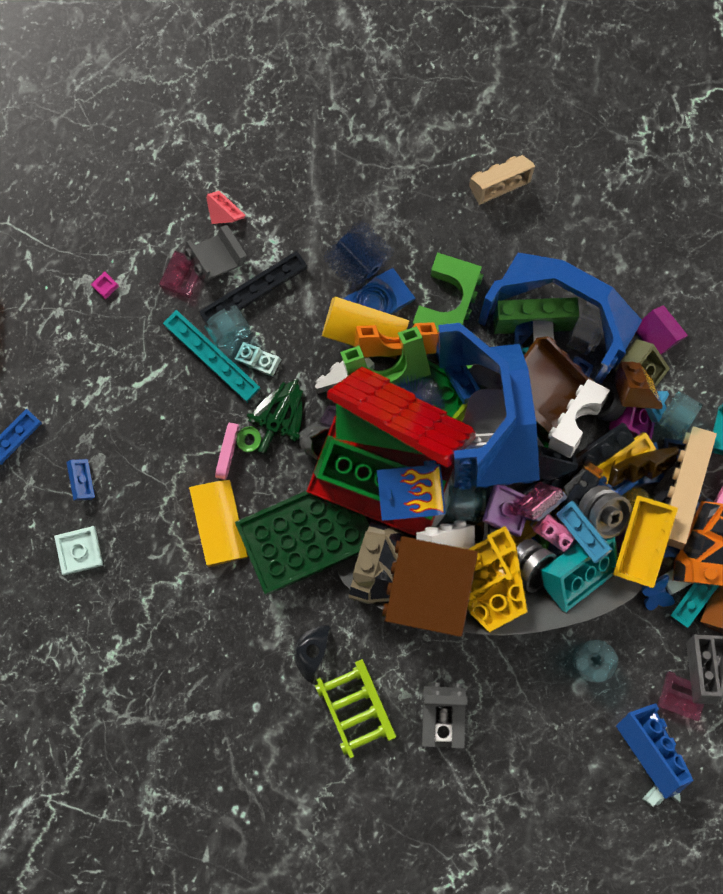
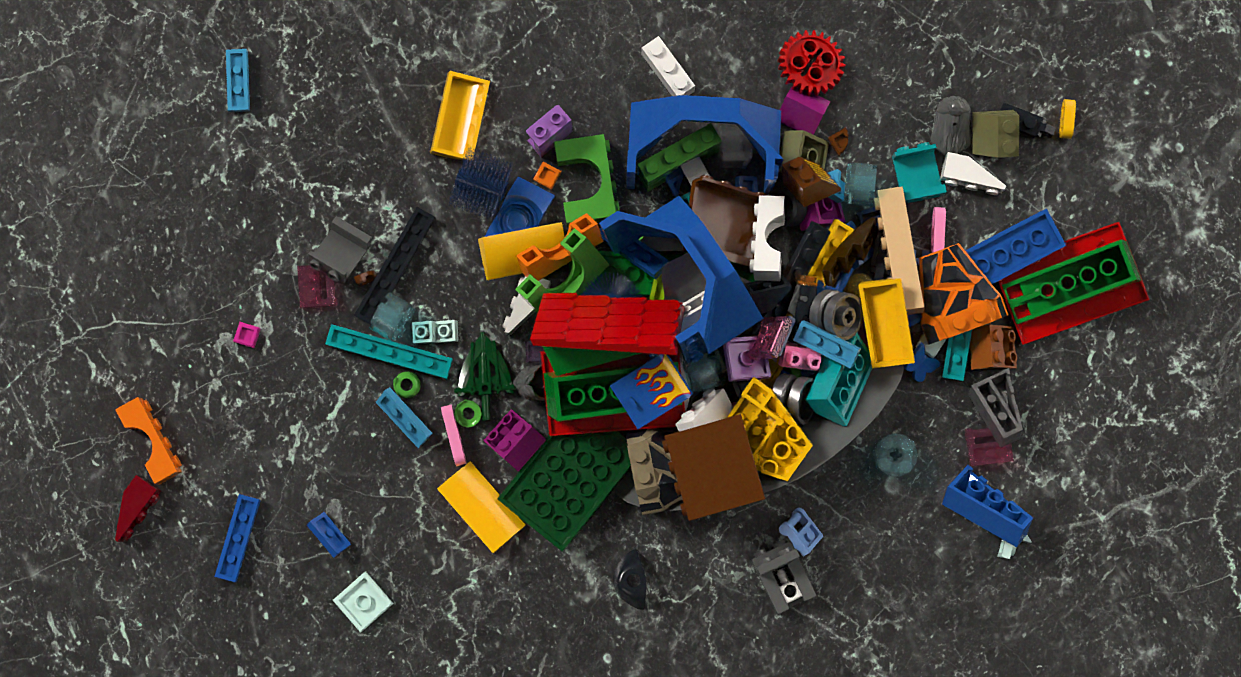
camera: 30 degrees left, 5 degrees up
(194, 415) = (403, 417): none -> dark azure plate
(207, 83) = (237, 80): none -> dark azure plate
(217, 396) = (415, 388): none -> bright green piece
(222, 209) = (322, 201): coral slope -> none
(223, 286) = (365, 278): none -> reddish brown tile
(275, 481) = (514, 440): none -> magenta slope
(371, 195) = (459, 116): none -> yellow slope
(375, 711) = (719, 604): lime fence -> none
(417, 279) = (547, 175): none -> orange tile
(438, 238) = (551, 127): none -> medium lavender panel
(479, 692) = (806, 537): none -> medium blue plate
(501, 178) = (577, 35): tan slope -> none
(562, 237) = (667, 68): none -> white brick
(679, 279) = (795, 51): none -> red gear
(679, 371) = (839, 141): none -> reddish brown tile

